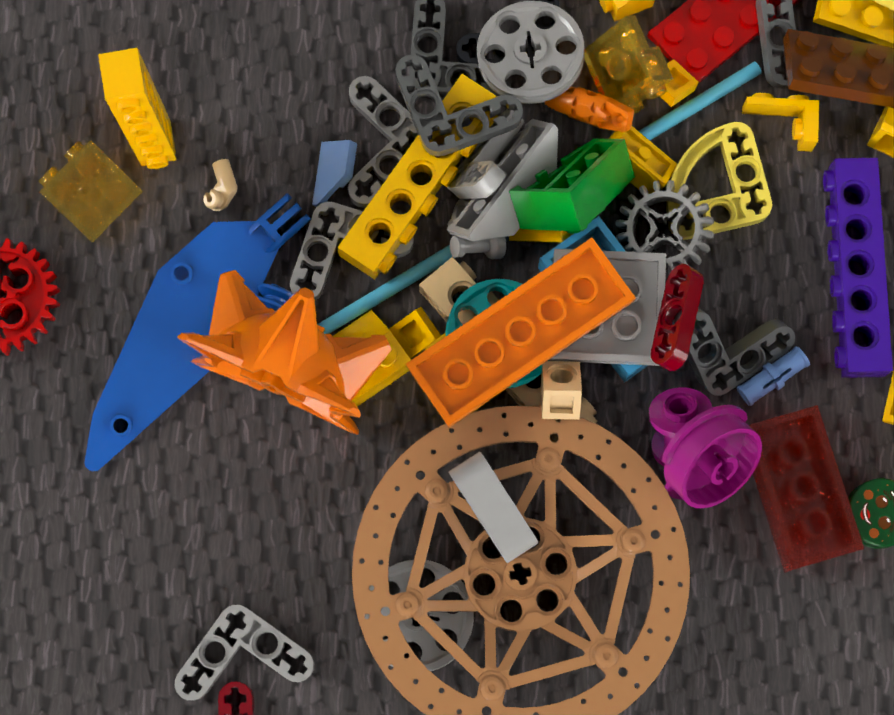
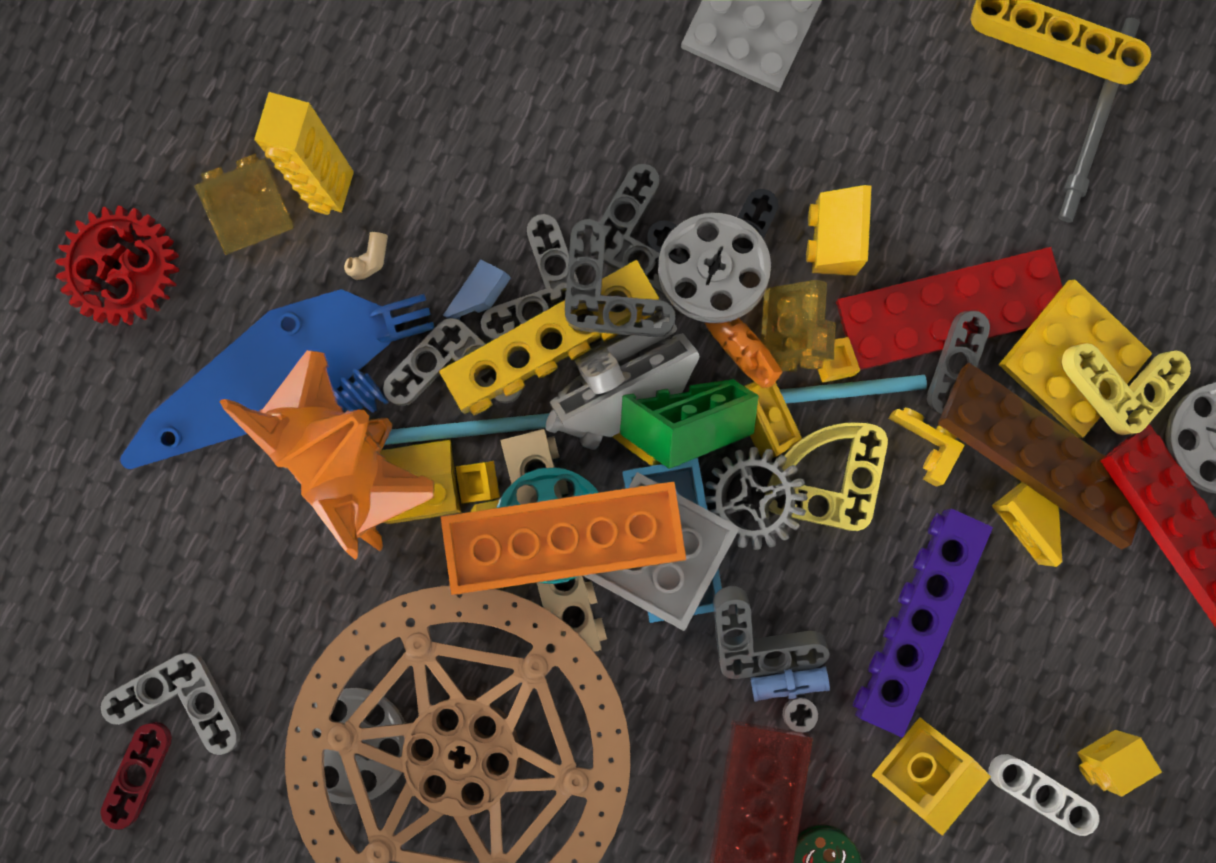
camera: 30 degrees right, 5 degrees up
(493, 507) = (460, 687): light grey beam -> none
(561, 390) = (577, 608): tan brick -> none
(672, 340) = (692, 622): dark red beam -> none
(701, 447) = (680, 730): magenta piece -> none
(784, 395) = (809, 722): none -> light grey bush

